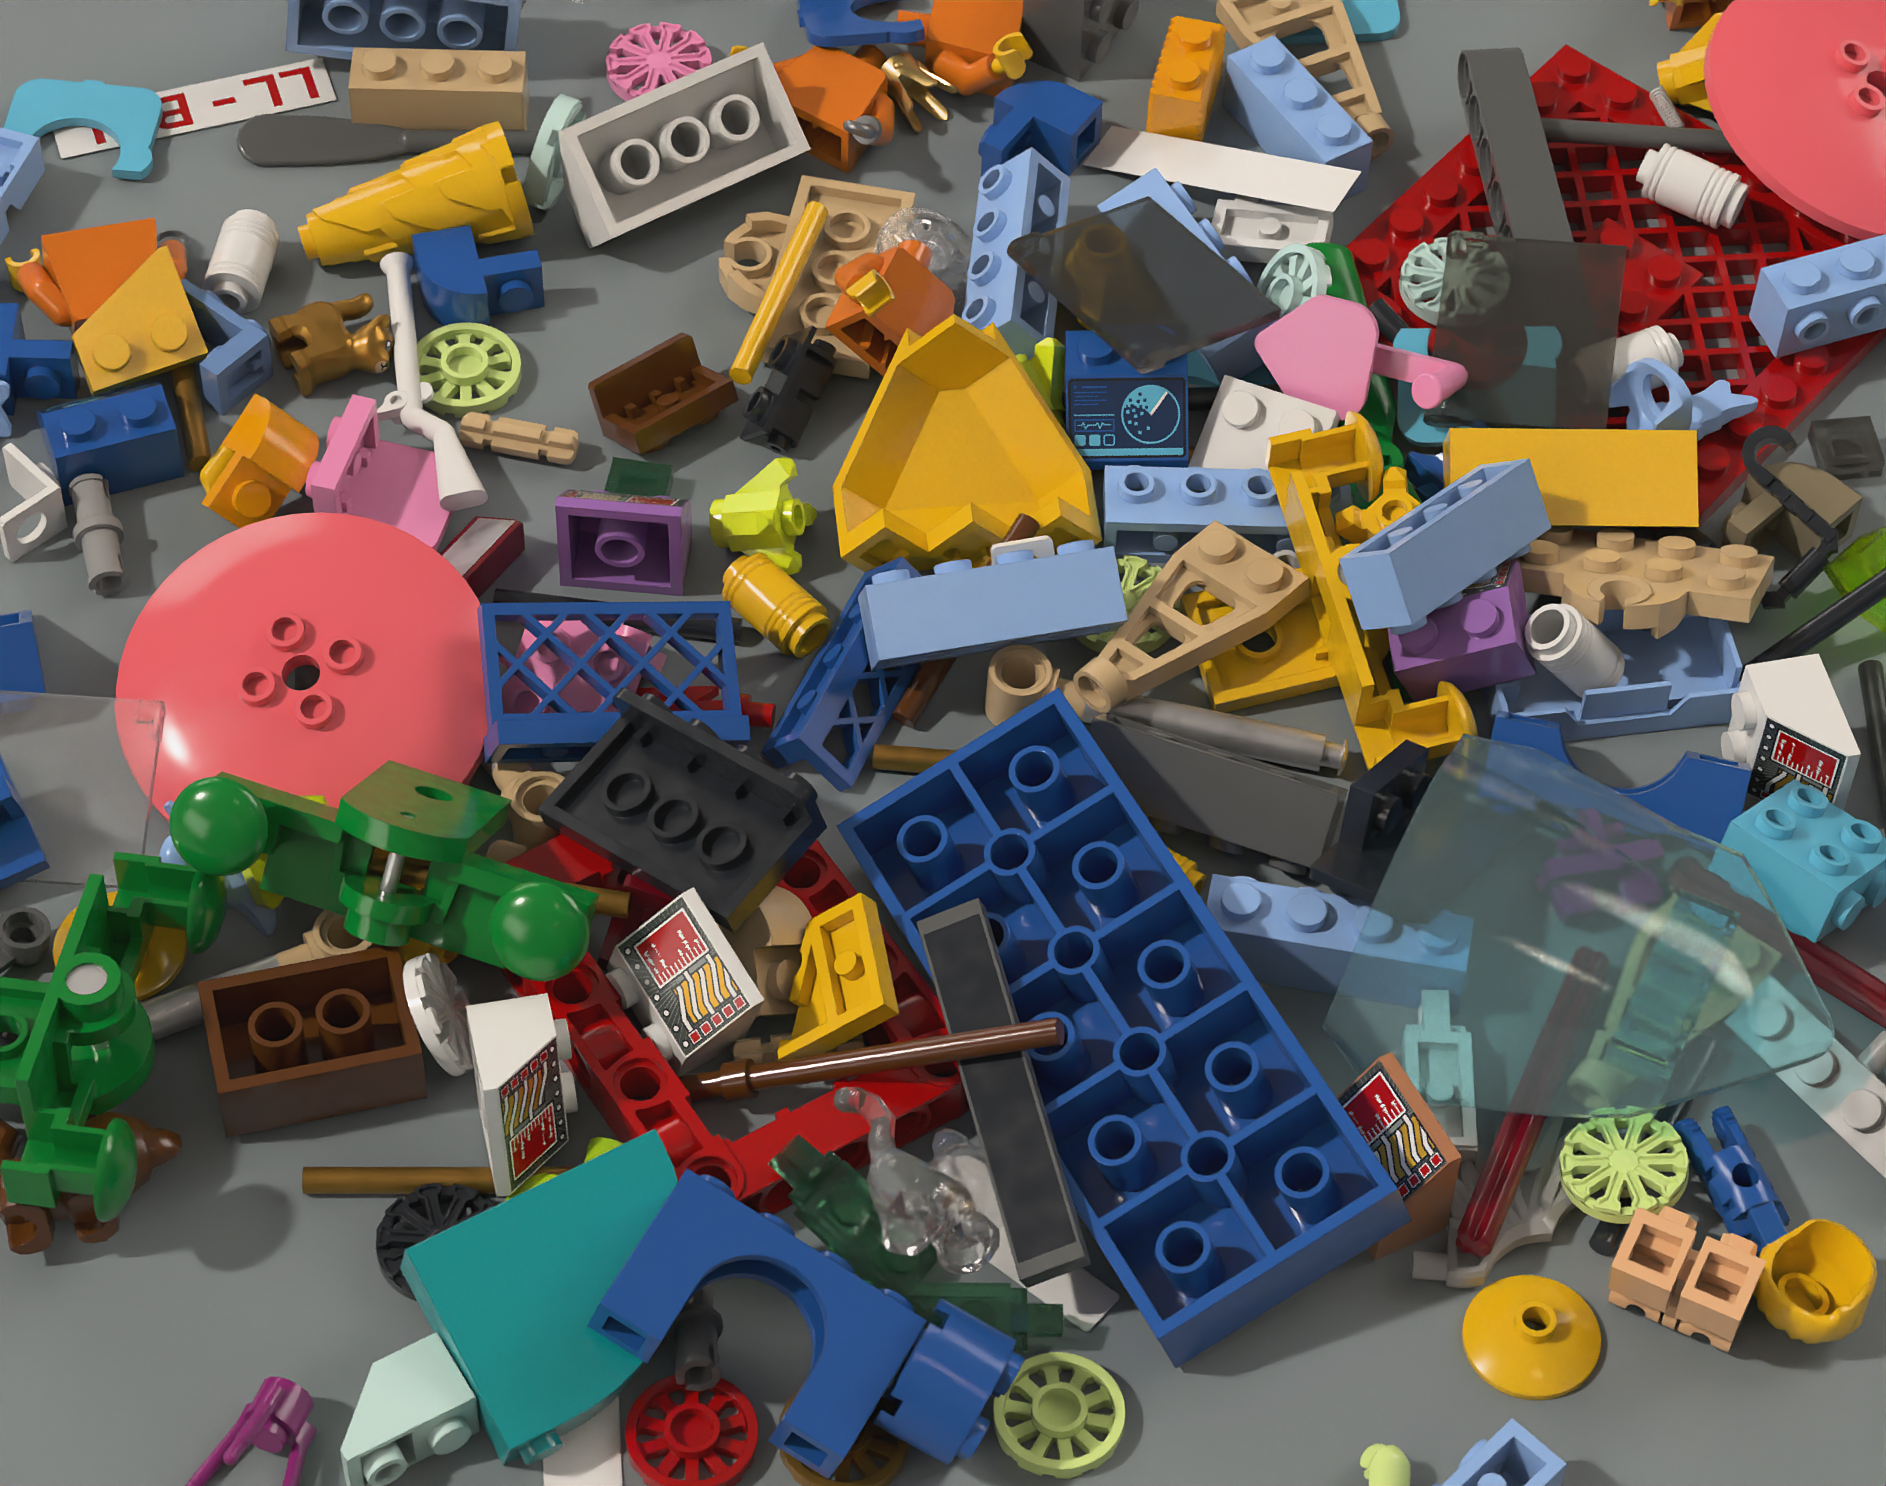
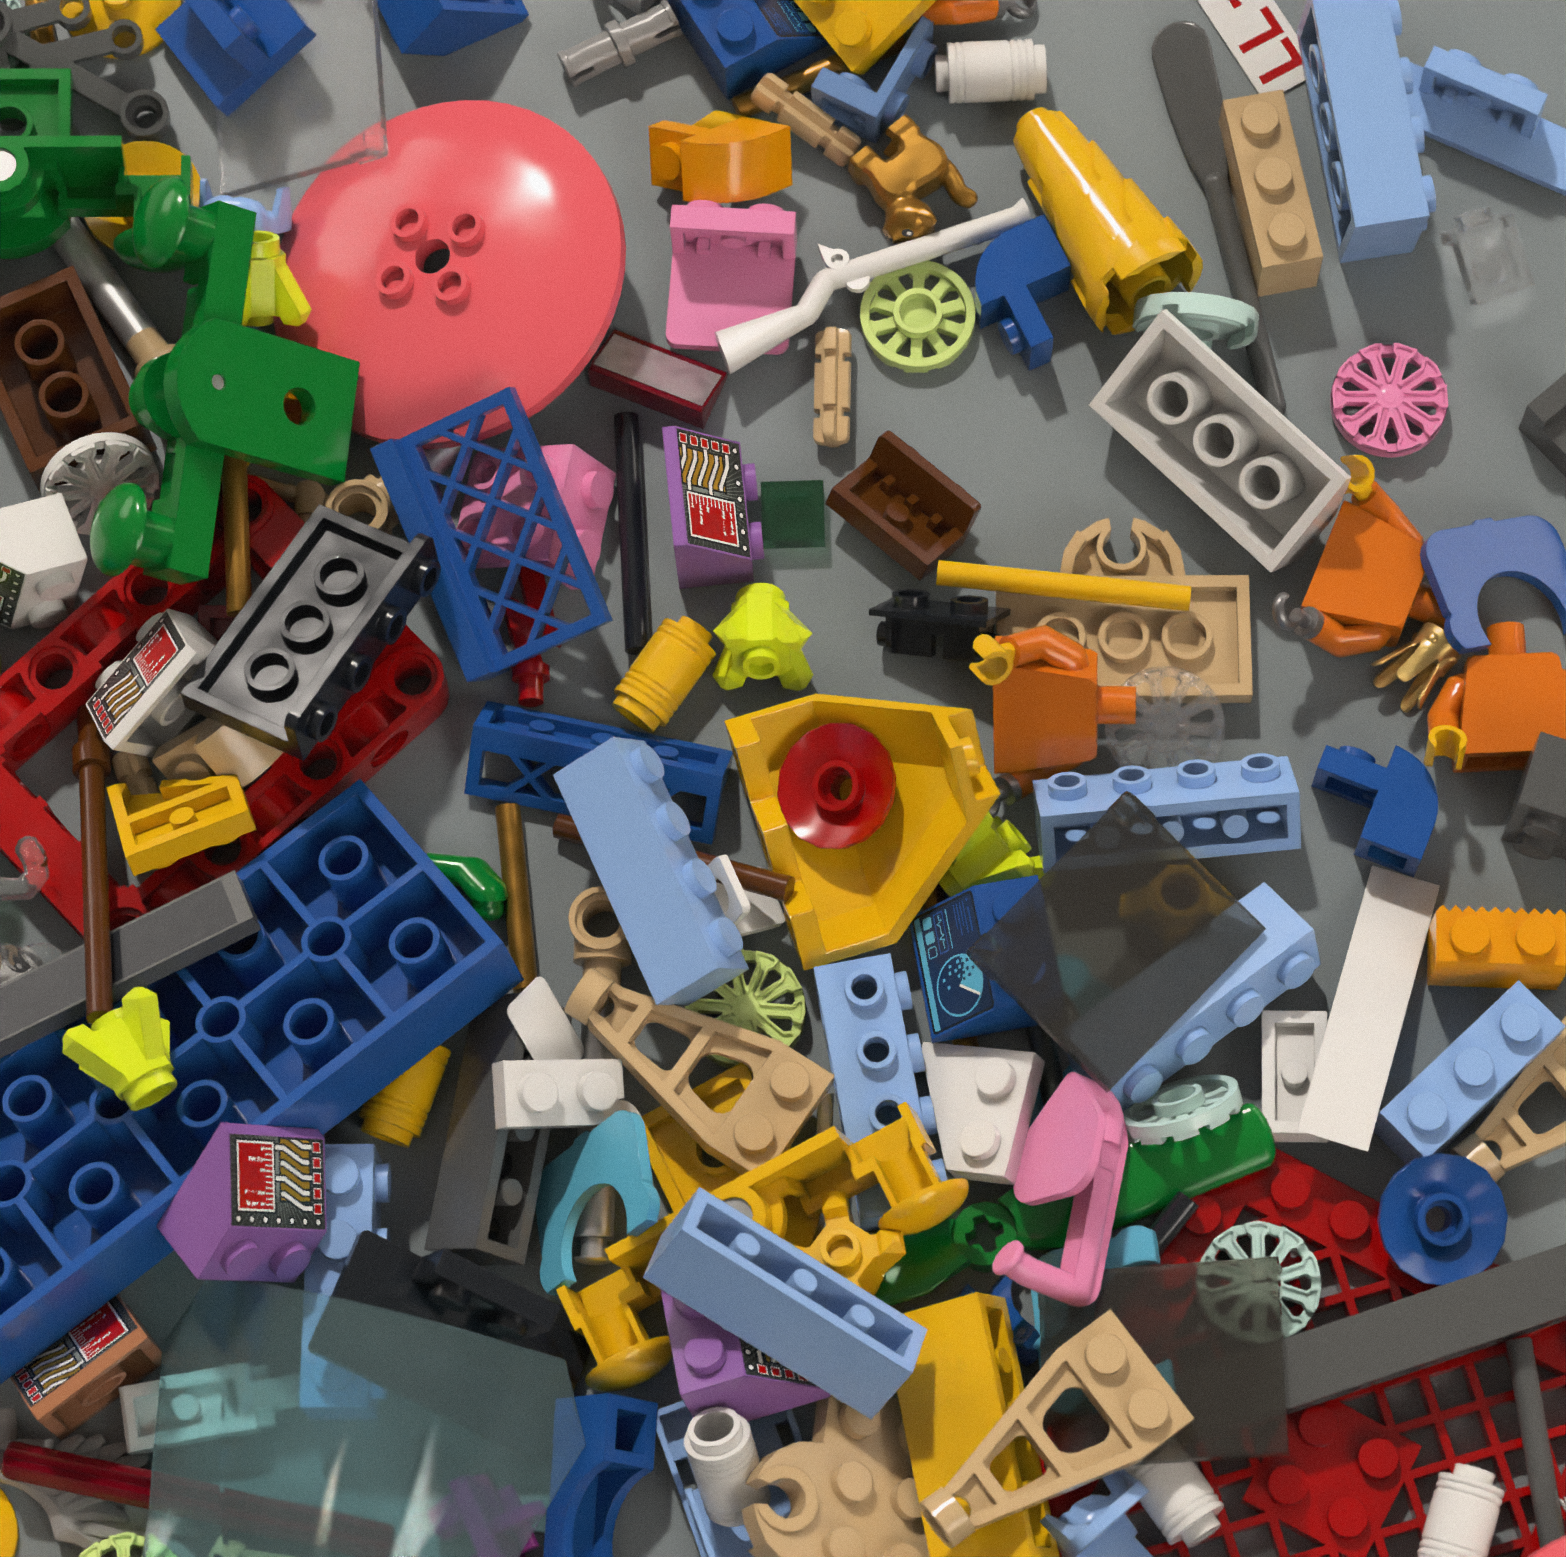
camera: 85 degrees right, 20 degrees up
(226, 407) = (805, 119): none -> tan axle
(933, 455) = (812, 782): none -> red dish
(1104, 1006) = (127, 1050): none -> neon yellow rock
(1127, 720) = (544, 1024): none -> white sticker
(1198, 714) = (557, 1093): none -> white hinge
(1261, 686) = (599, 1158): none -> medium azure piece
(1283, 948) = (251, 1204): none -> medium lavender slope
(1423, 148) = (1472, 1213): none -> blue dish
(1570, 337) = (1121, 1387): none -> tan plate

